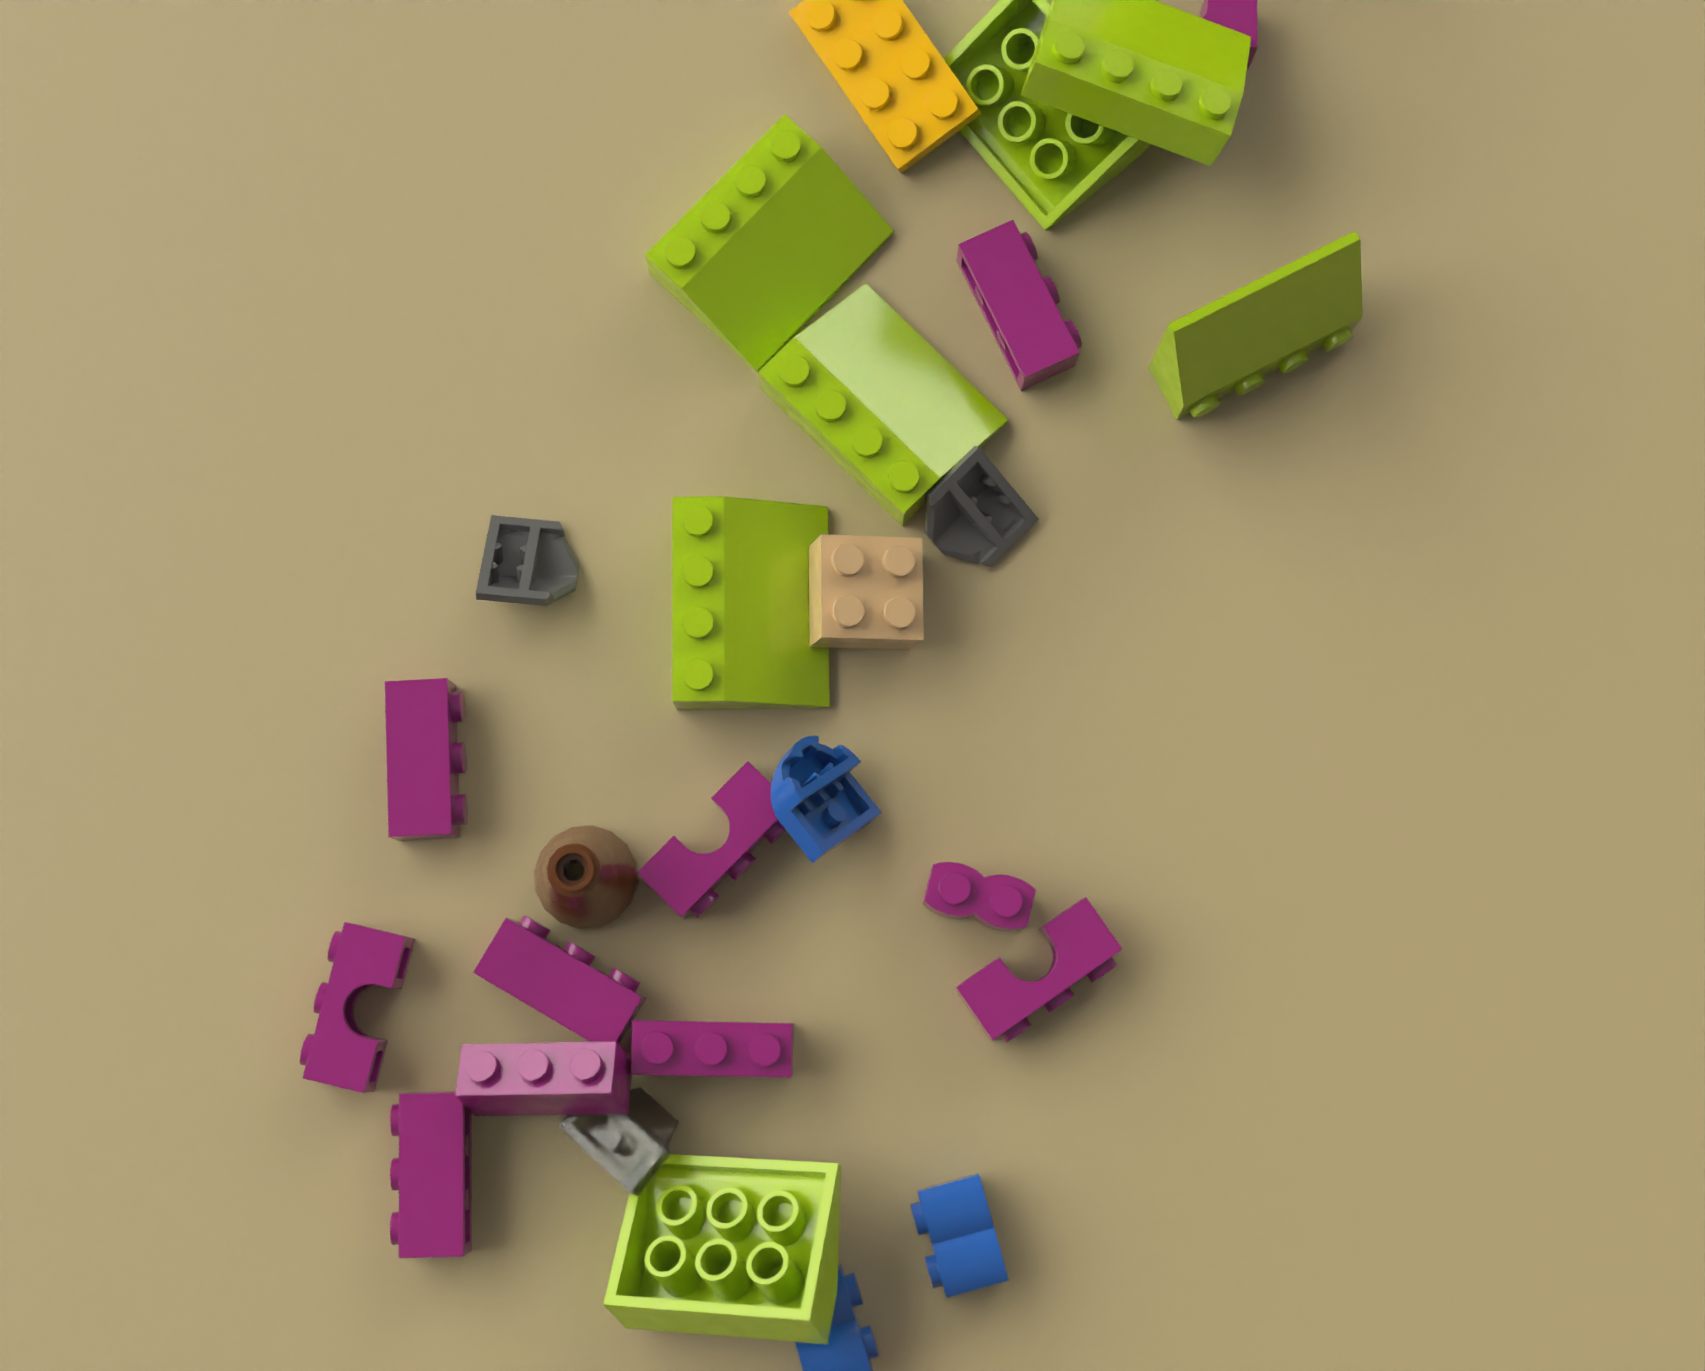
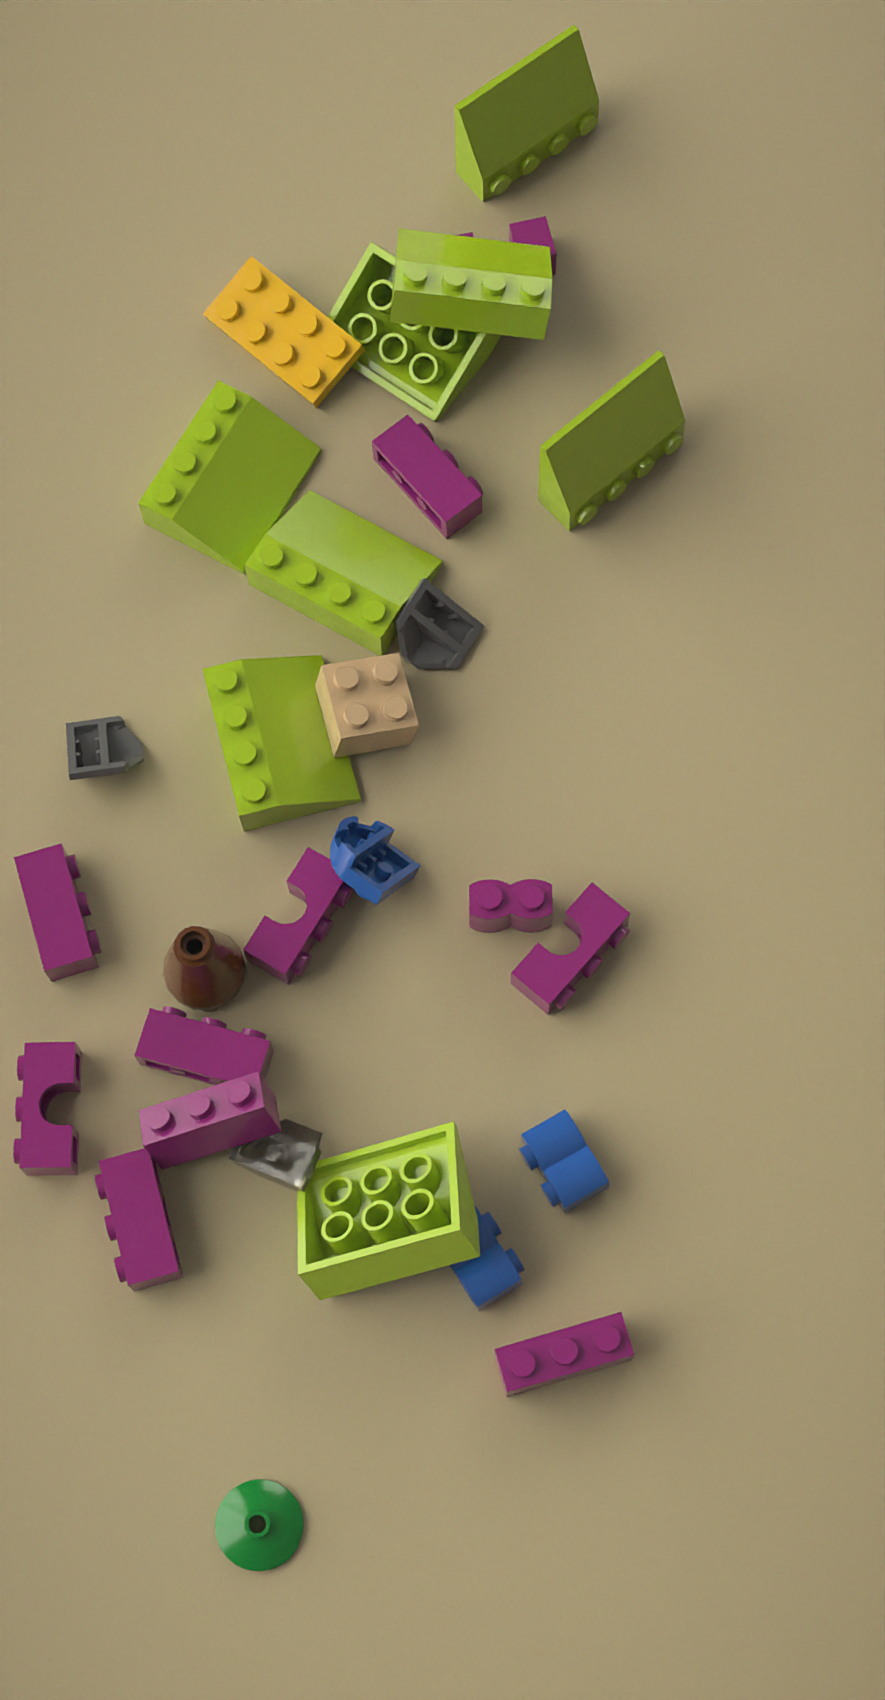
camera: 10 degrees left, 10 degrees down
(712, 1048) = (335, 1069): magenta brick -> none

